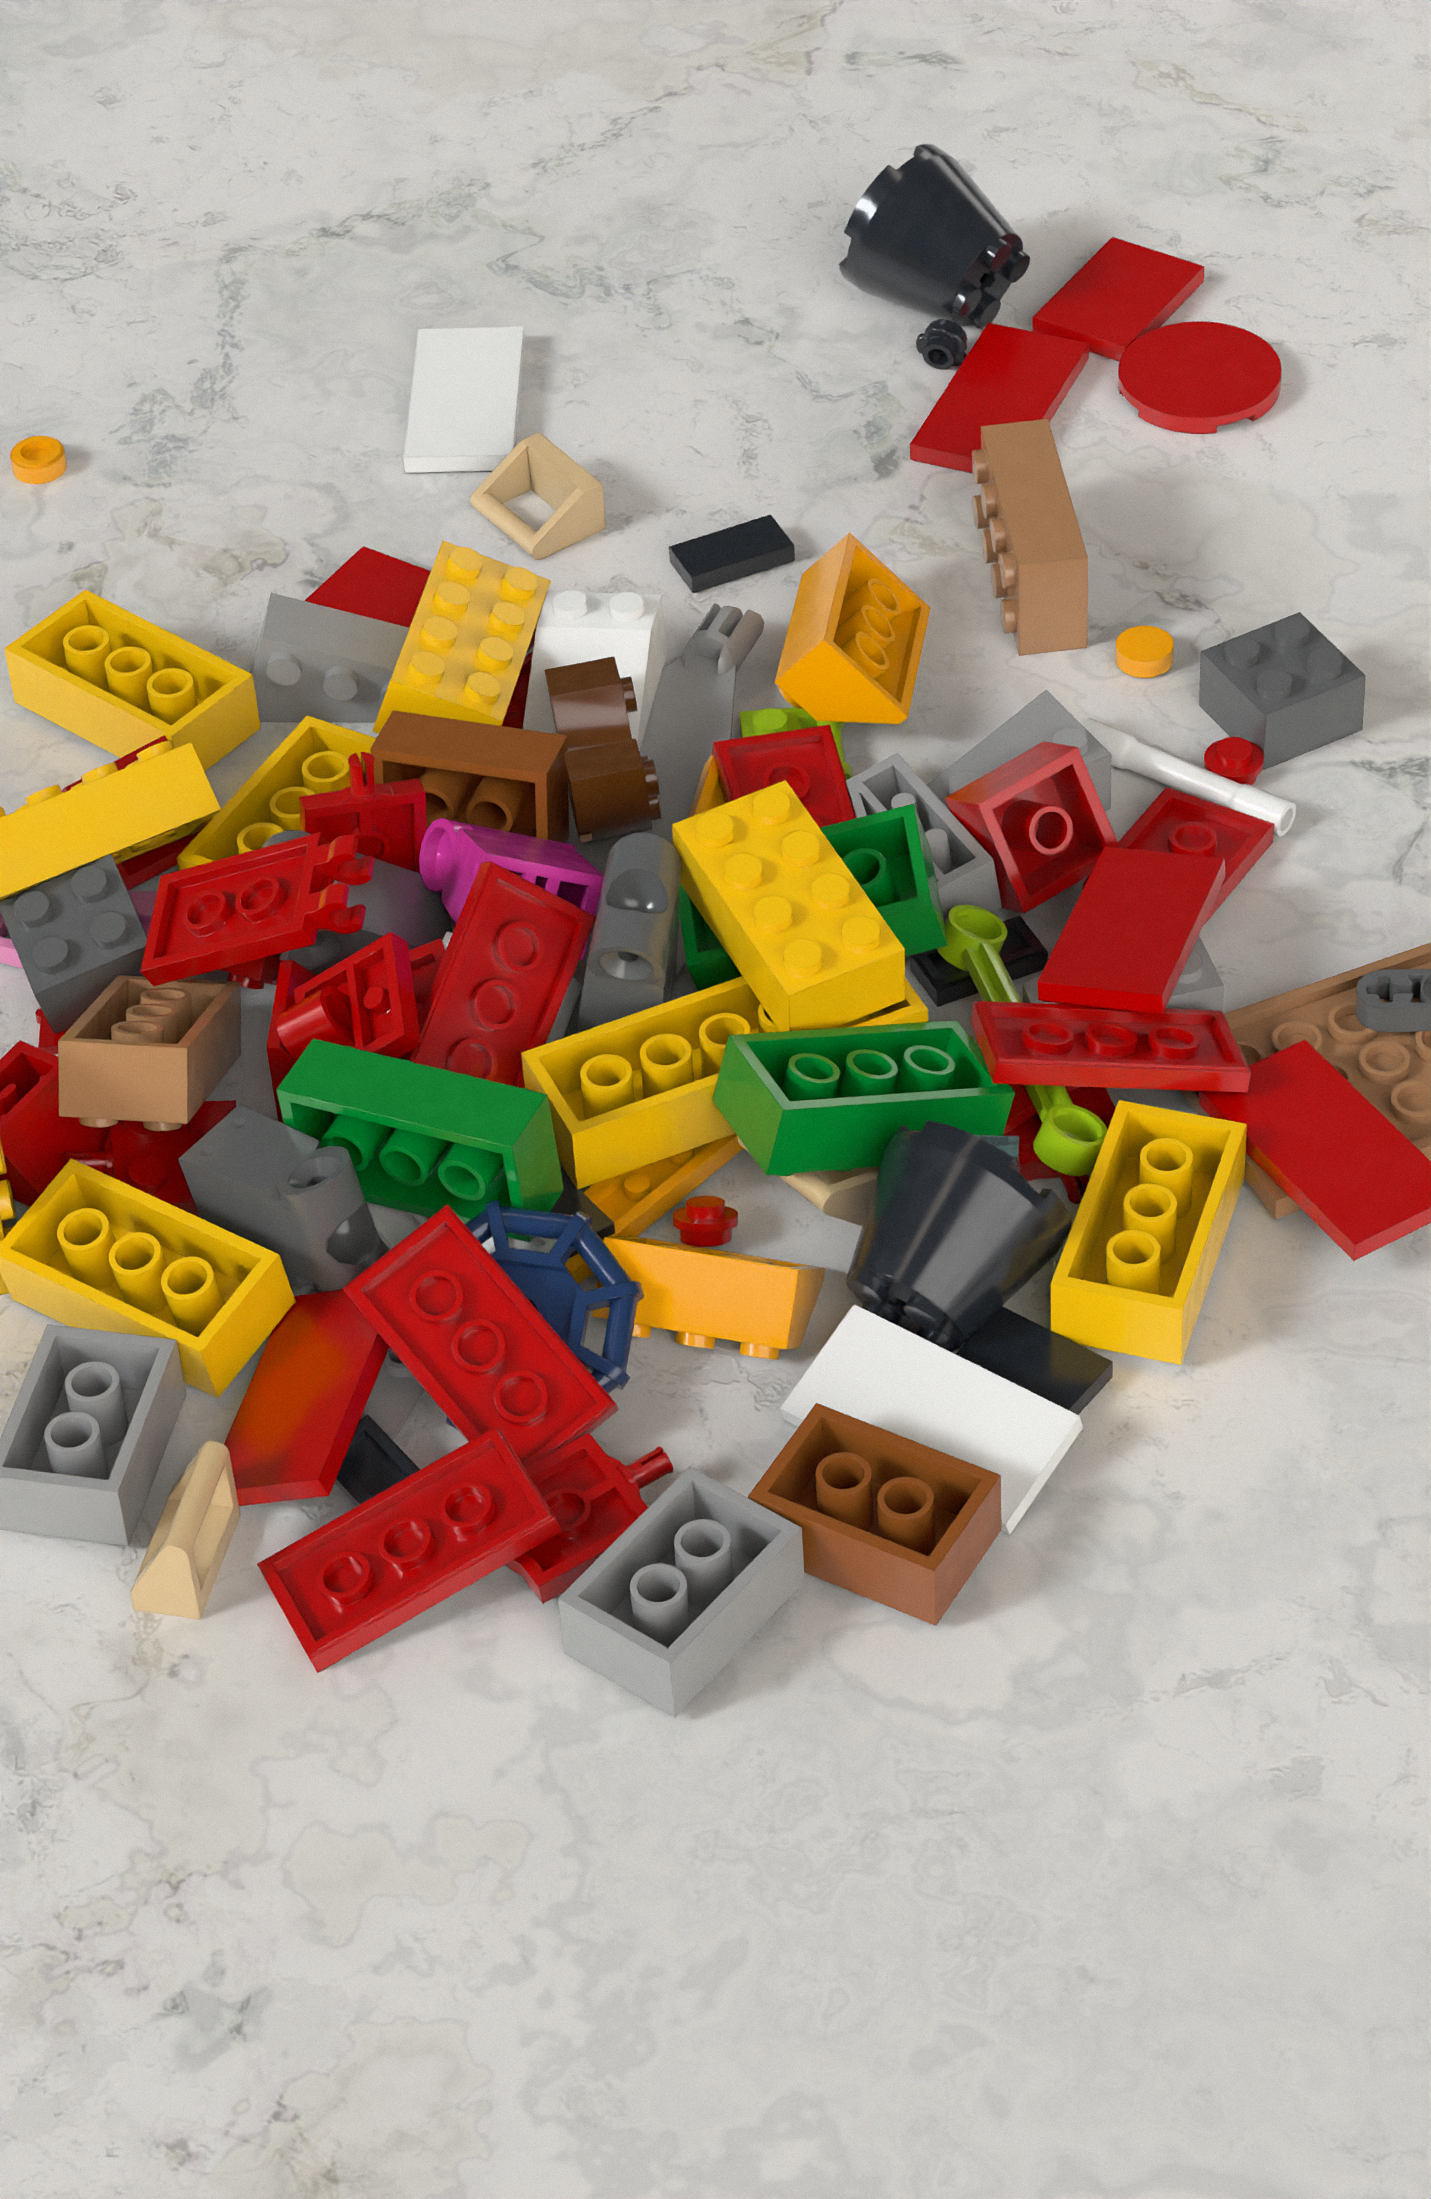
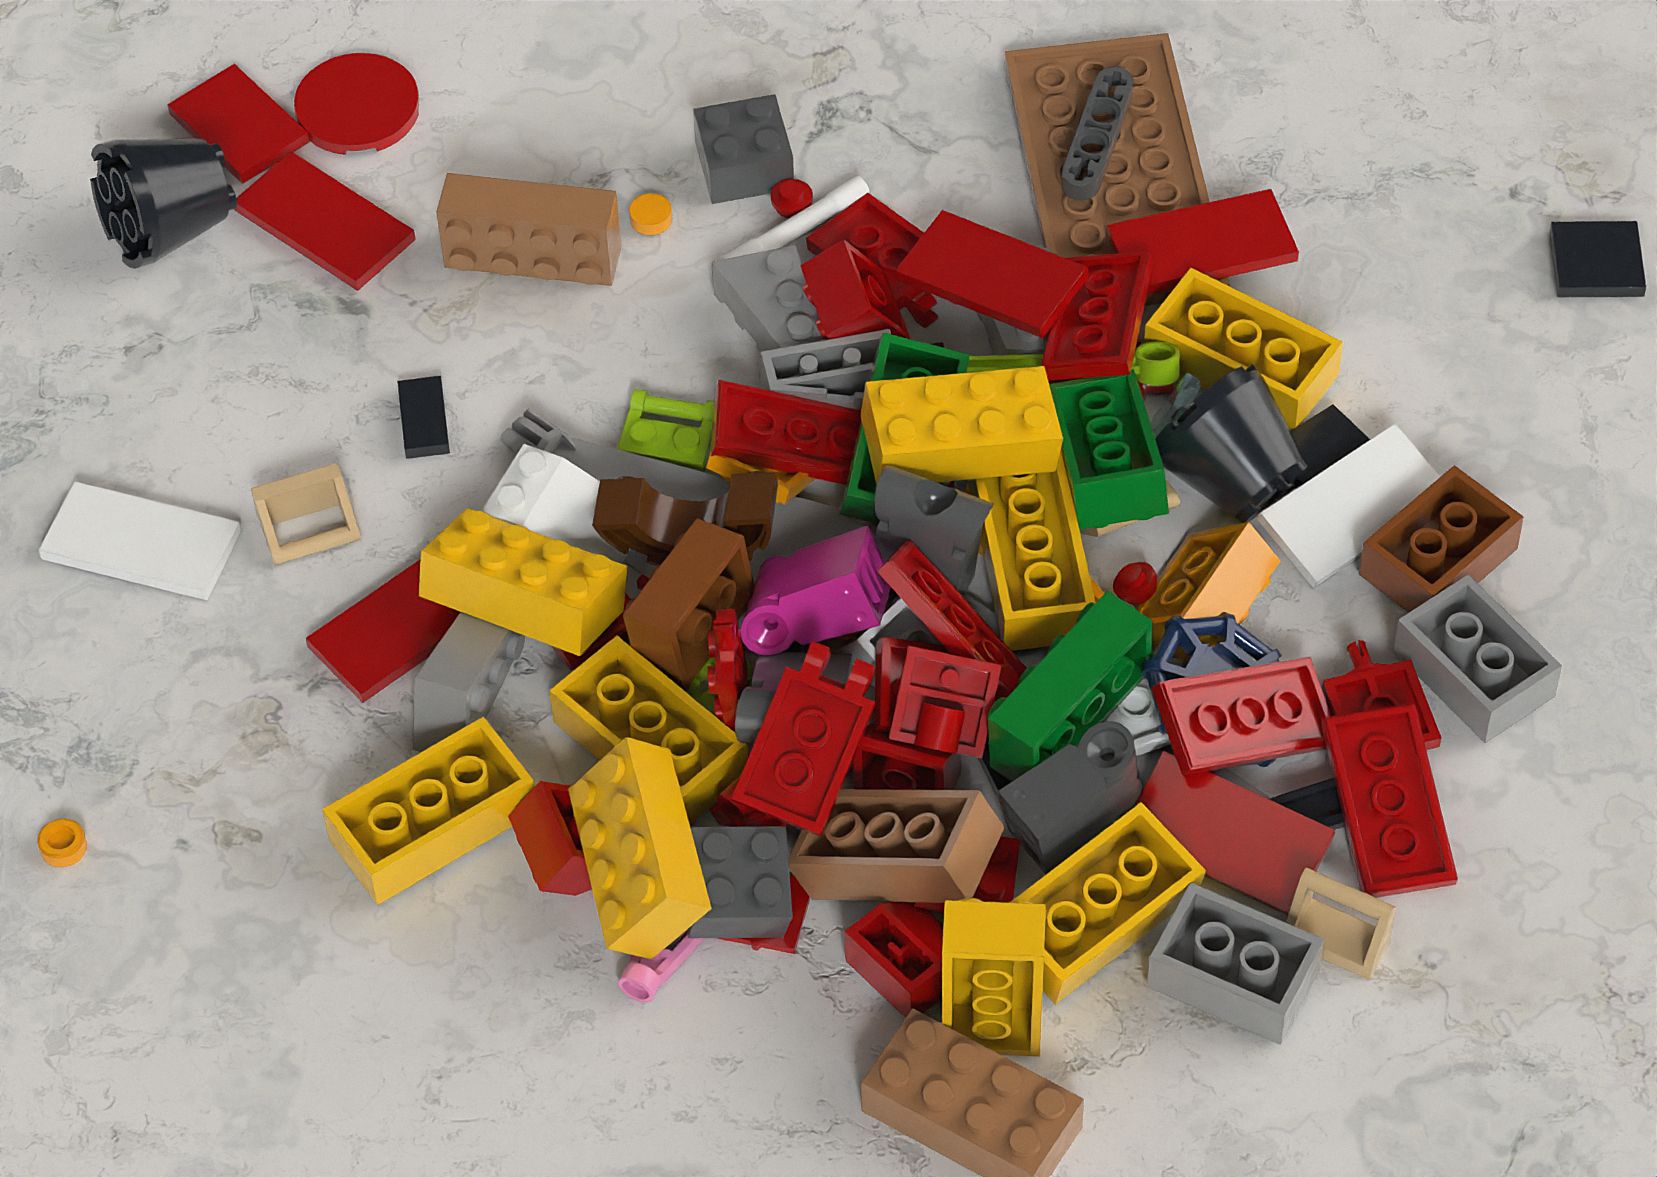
camera: 75 degrees left, 10 degrees up
(852, 640) = (588, 361): light orange slope -> none
(942, 344) = (244, 234): black plate -> none

